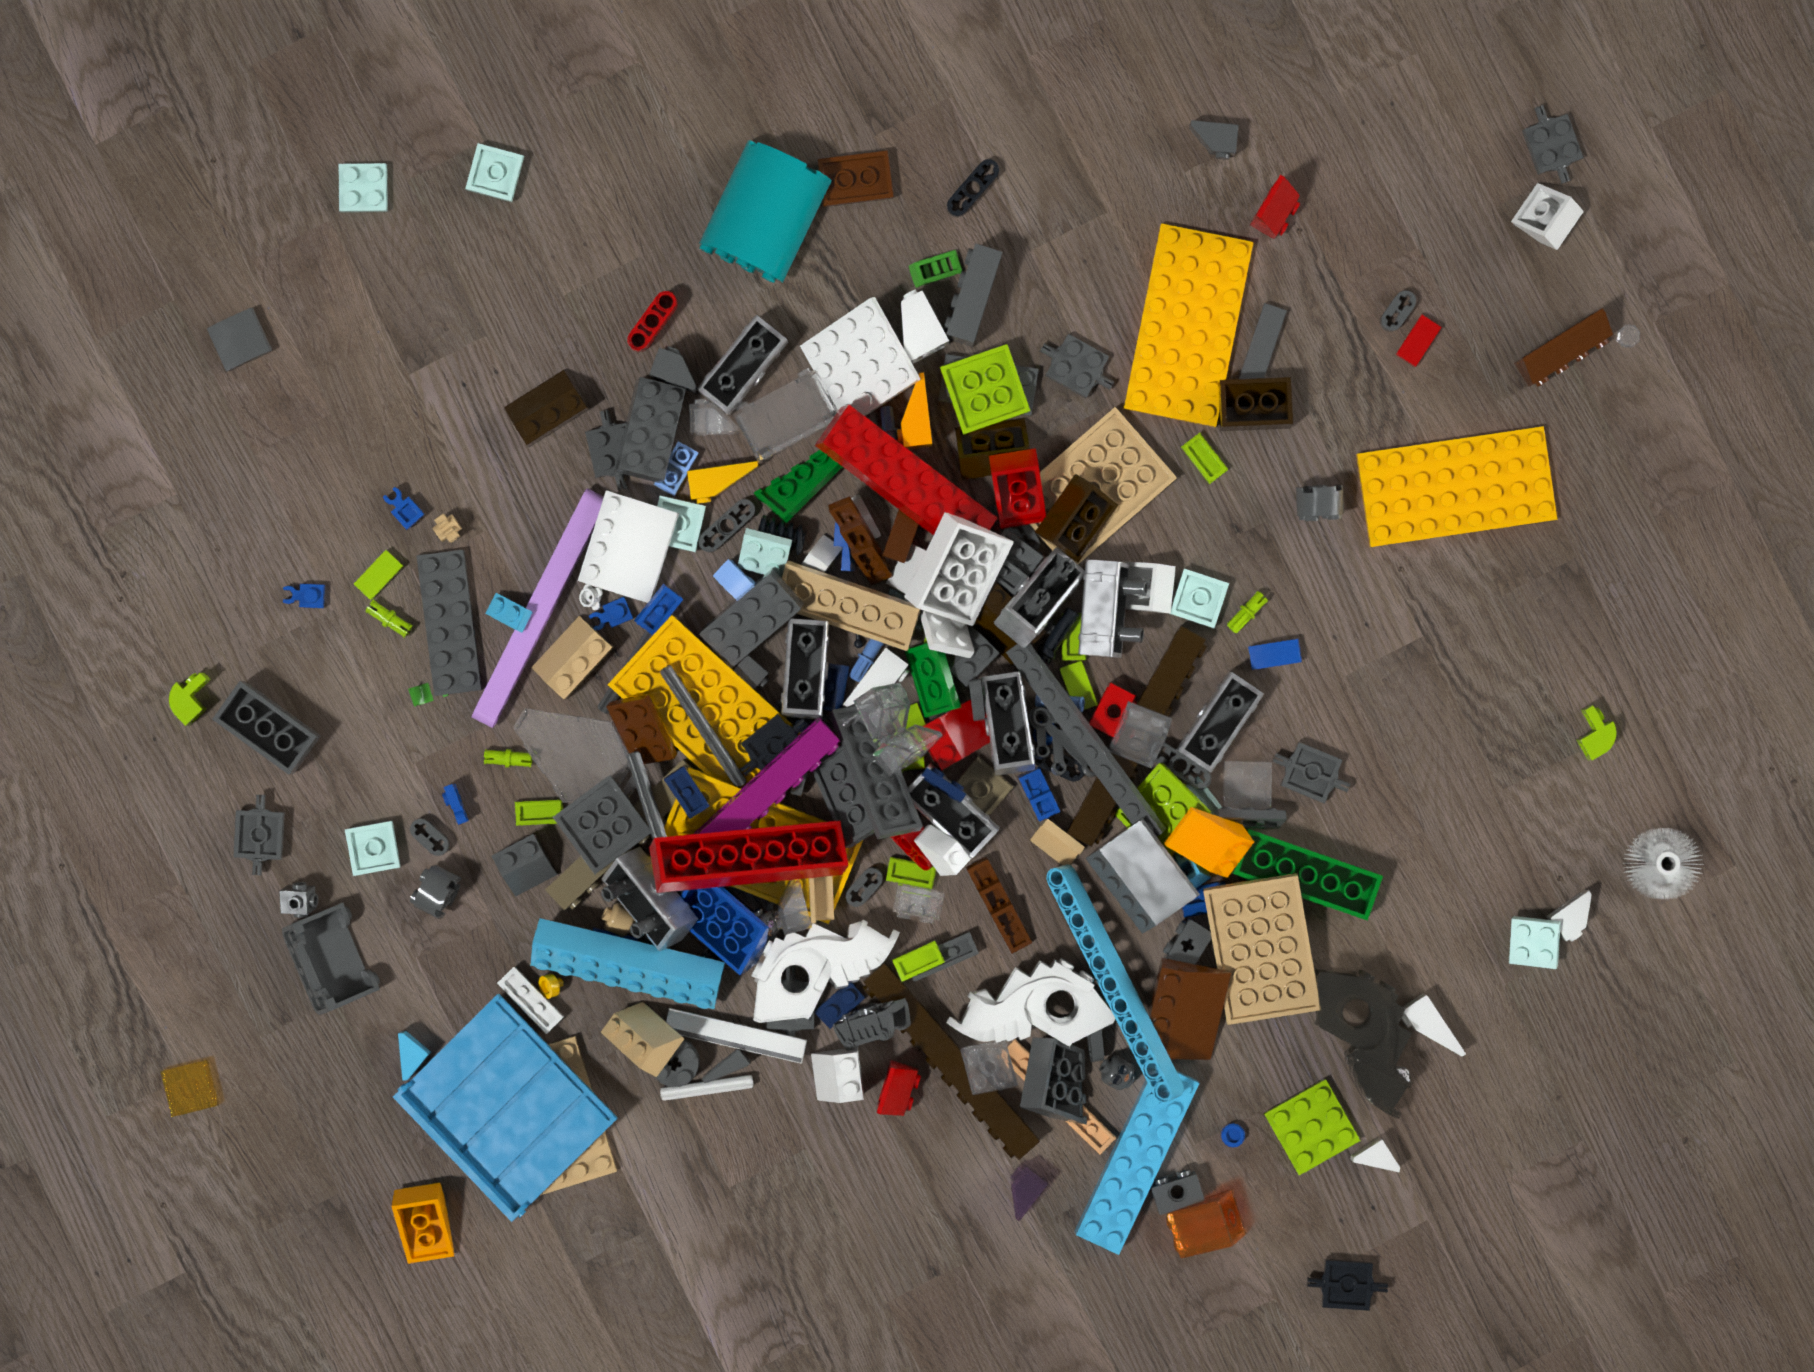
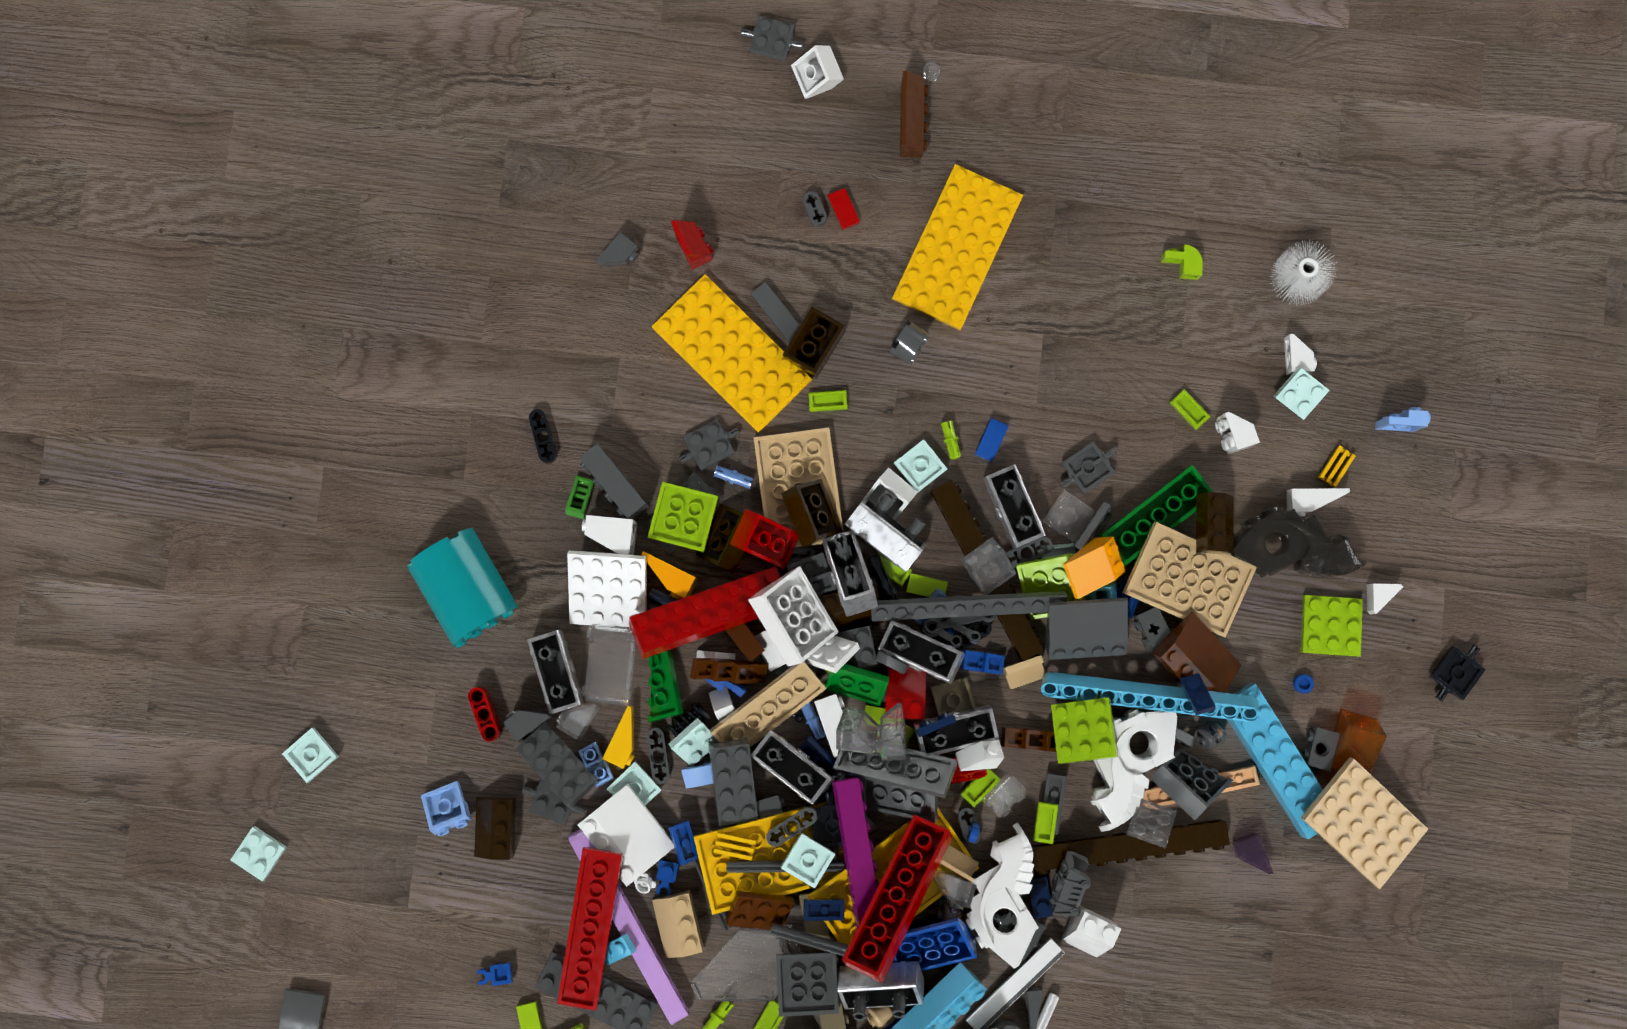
camera: 55 degrees left, 5 degrees down
(447, 528) = (529, 953): tan gear -> none
(513, 571) = (589, 928): none -> red plate
(532, 347) = (446, 809): none -> light blue plate
(696, 681) = (734, 854): none -> yellow tile
(724, 744) = (807, 860): none -> light aqua plate
(734, 694) = (777, 829): none -> dark grey beam
(857, 178) = (483, 509): reddish brown plate -> none
(860, 894) = (973, 832): none -> blue tile
(897, 1089) = (1126, 898): red slope -> none
(1036, 939) = (1084, 730): none -> lime plate
(1060, 412) = (733, 477): none -> medium blue pin
(1113, 695) = (948, 569): red brick -> none
(1129, 1281) = (1364, 823): none -> tan plate
(1148, 1026) = (1197, 694): none -> dark blue plate
(1336, 937) = (1214, 523): none -> dark brown slope
(1442, 839) = (1190, 409): none -> lime tile
(1447, 902) = (1235, 433): none -> white slope
(1461, 1028) = (1345, 453): none -> yellow tile
(1578, 1070) = (1408, 420): none -> light blue plate

